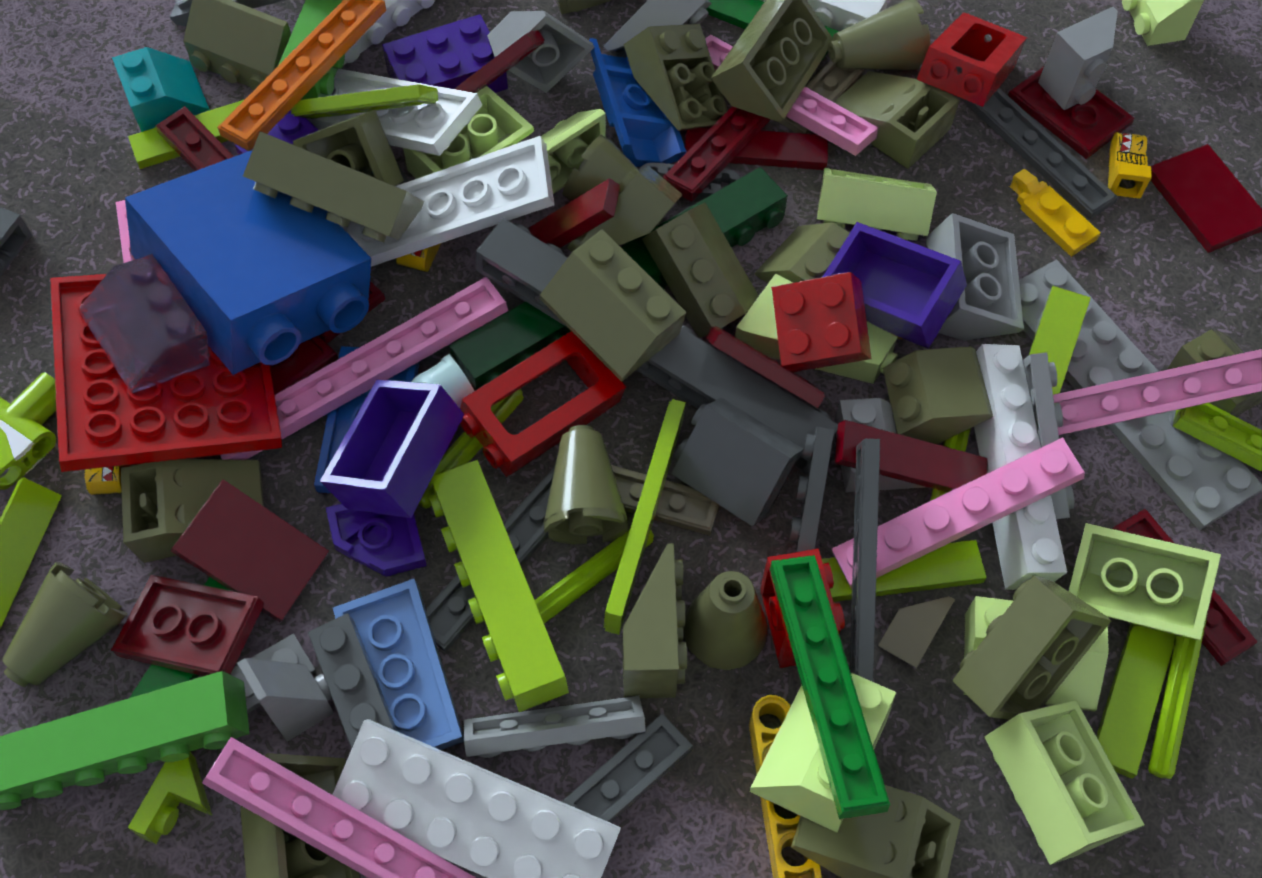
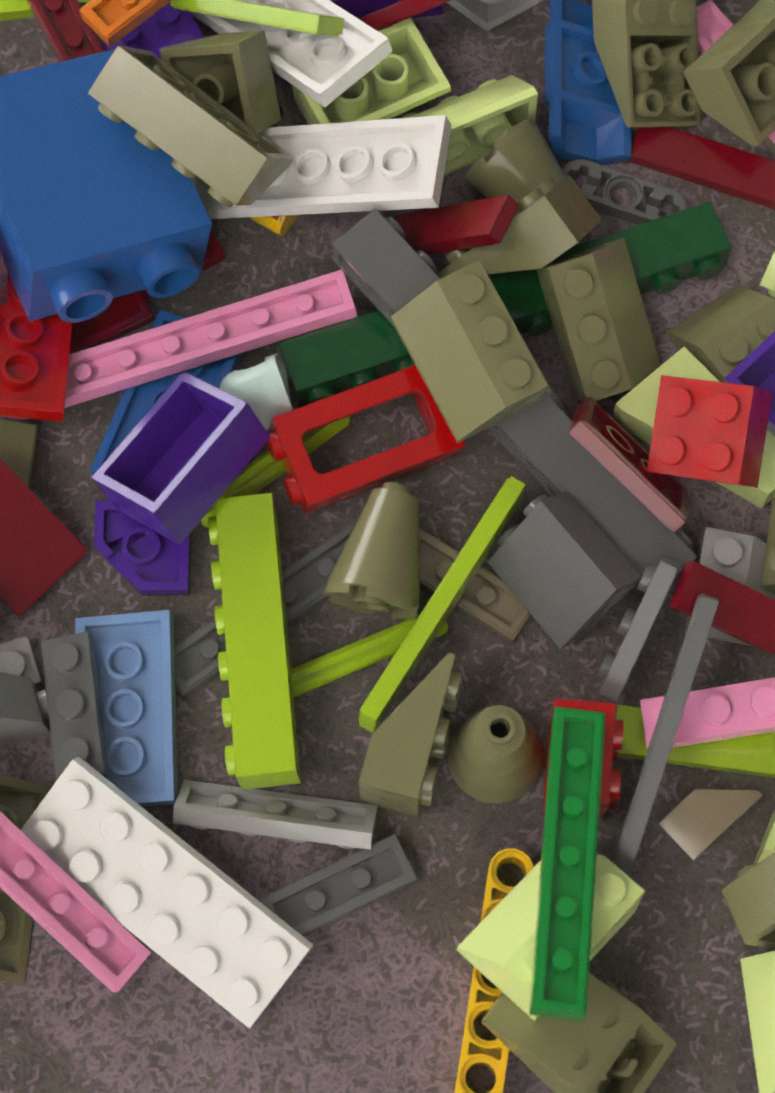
camera: 20 degrees right, 10 degrees up
(714, 151) = (660, 166): dark red tile -> none

